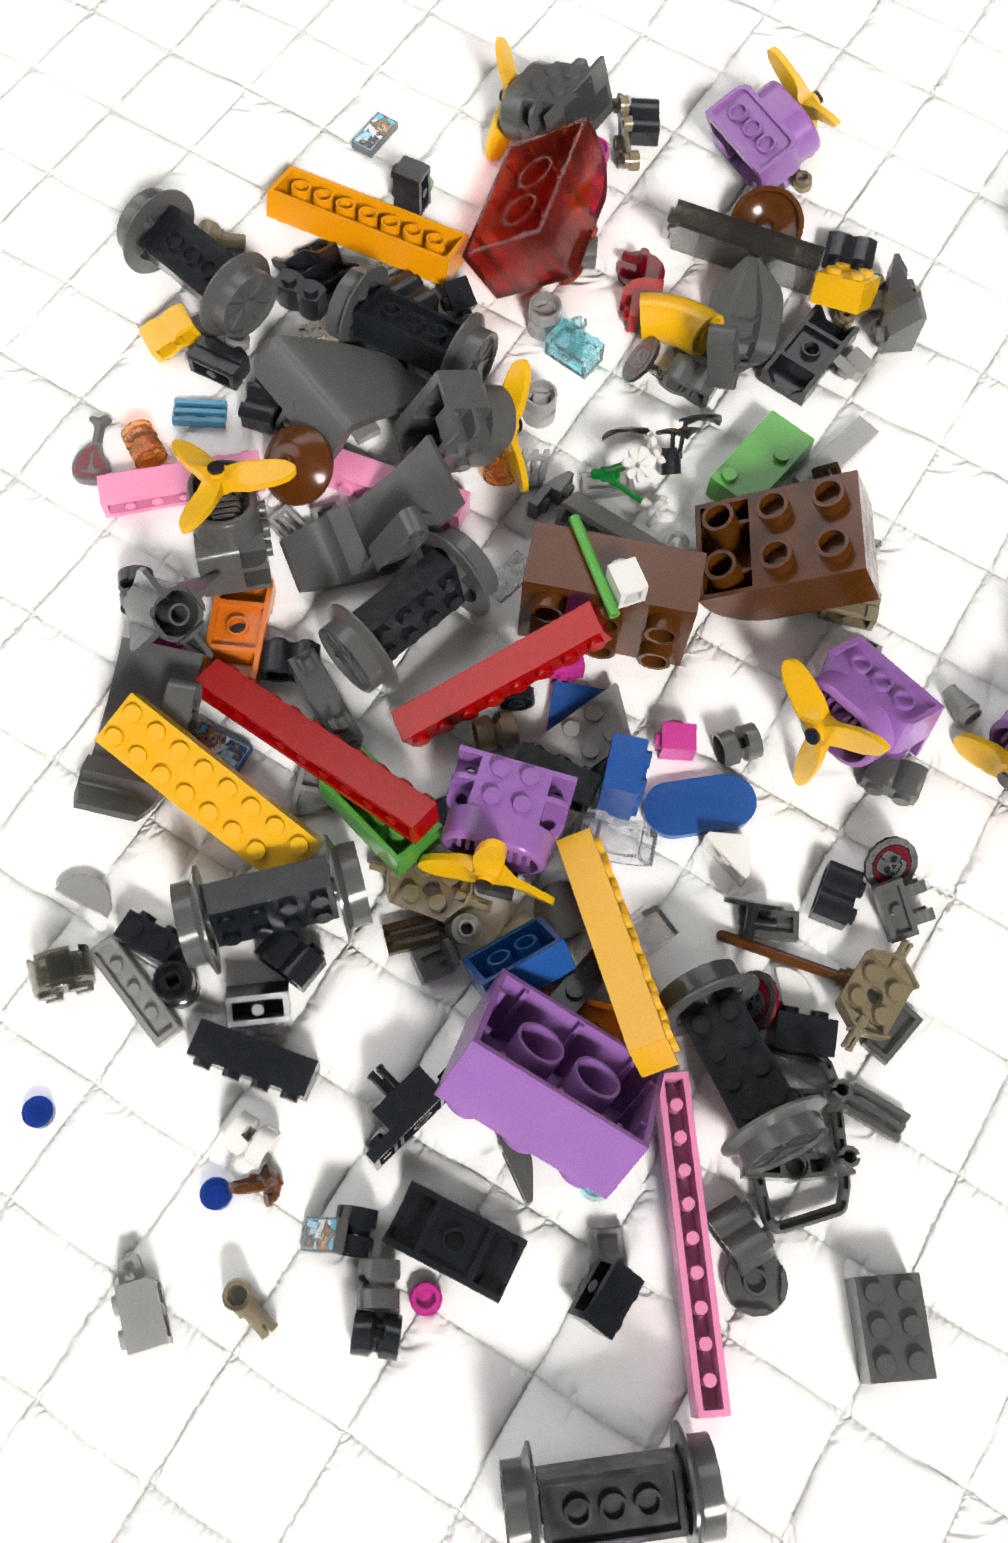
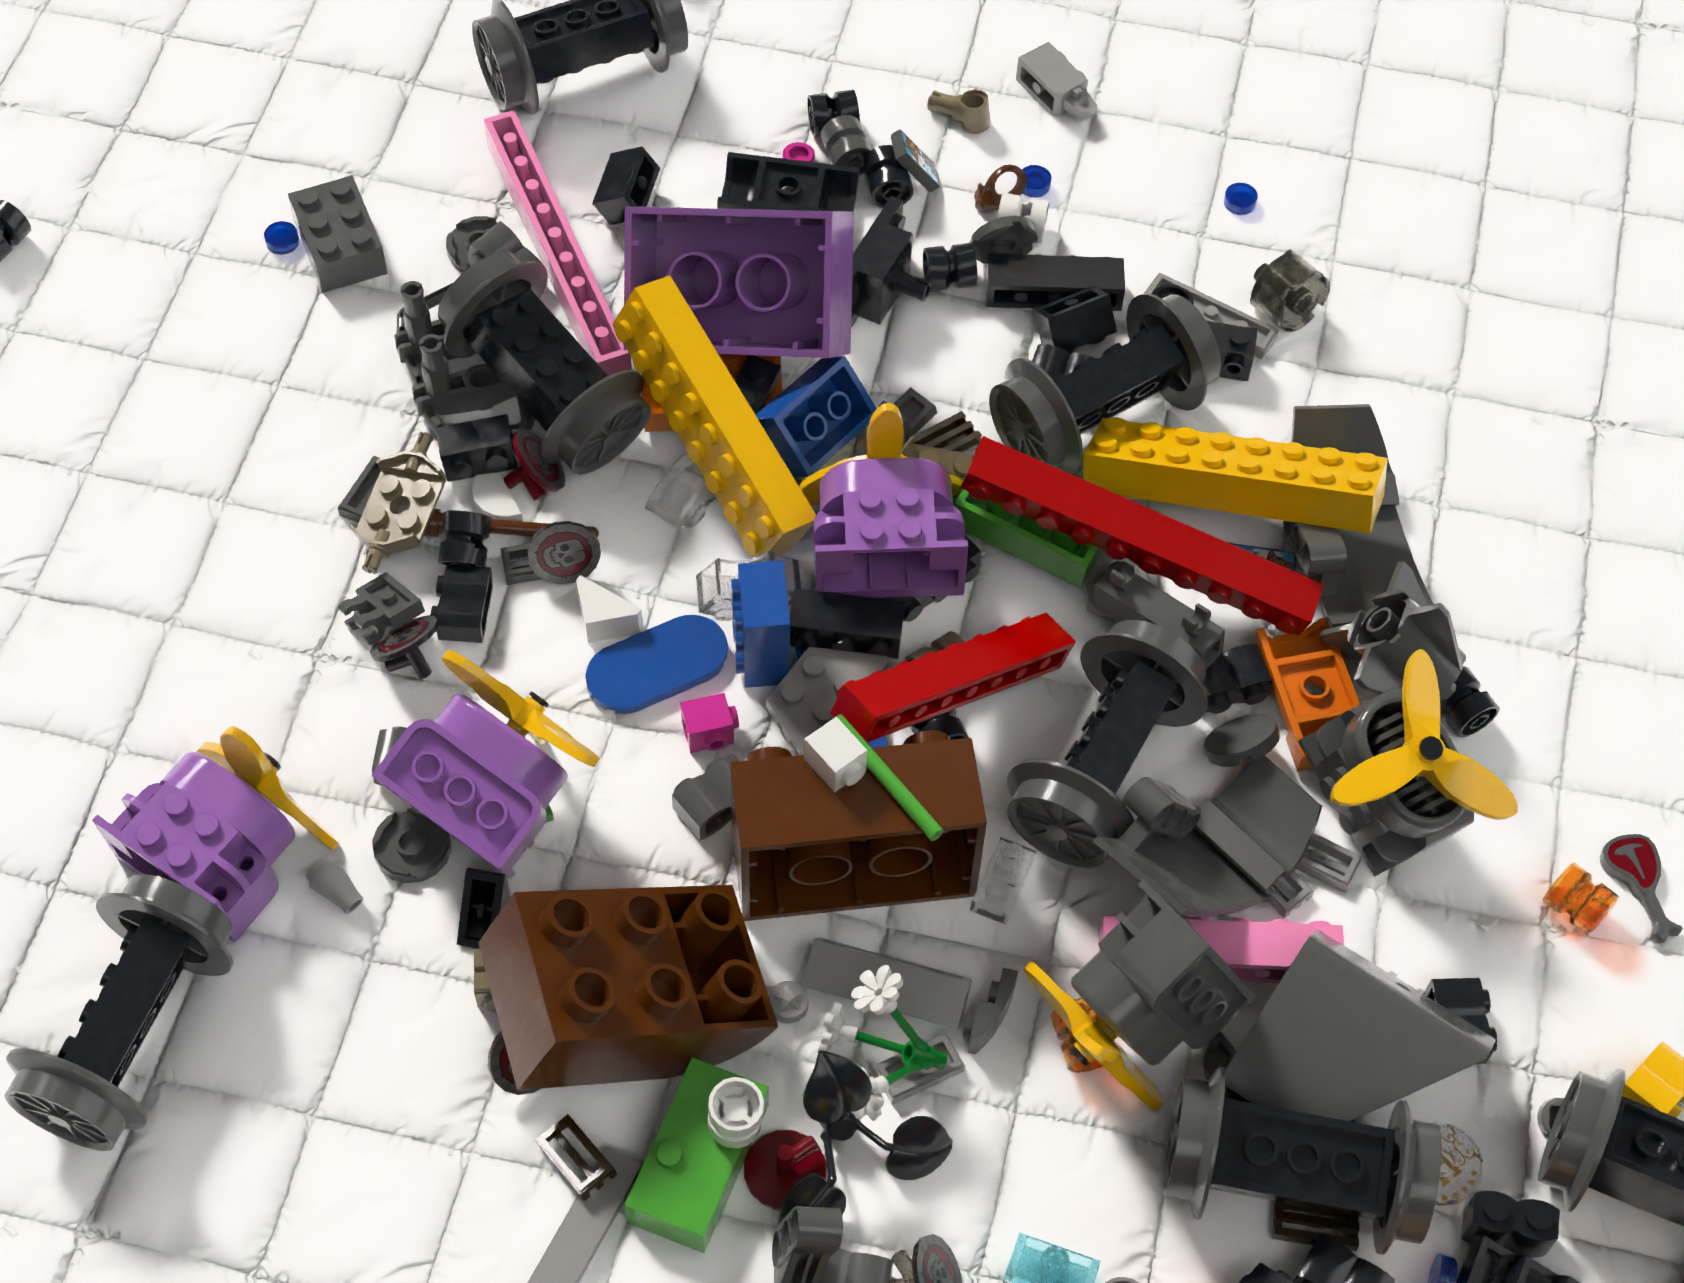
camera: 165 degrees right, 10 degrees down
(87, 892) = (1312, 384): light grey tile -> none
(152, 487) = (1497, 866): bright pink brick -> none
(200, 409) = (1569, 978): dark azure tile -> none
(219, 362) = (1550, 1063): black brick -> none
(283, 1108) = (1004, 235): none -> dark grey tile
(306, 607) = (1240, 738): none -> dark grey tile
(313, 461) = (1359, 922): reddish brown dish -> none
(340, 1103) = (950, 266): none -> black wheel
(533, 458) = (1036, 1023): light grey tile -> none
(540, 404) = (1064, 1147): light grey wheel -> none
(686, 685) = (706, 799): none -> dark grey brick
(704, 454) = (778, 1163): none -> dark red shield
(739, 744) = (625, 738): dark grey wheel -> none
(741, 446) = (735, 1112): none -> white wheel
(829, 941) = (464, 538): none -> black wheel
(882, 1103) = (381, 406): dark grey tile -> none
(944, 1352) = (281, 237): none -> clear blue tile

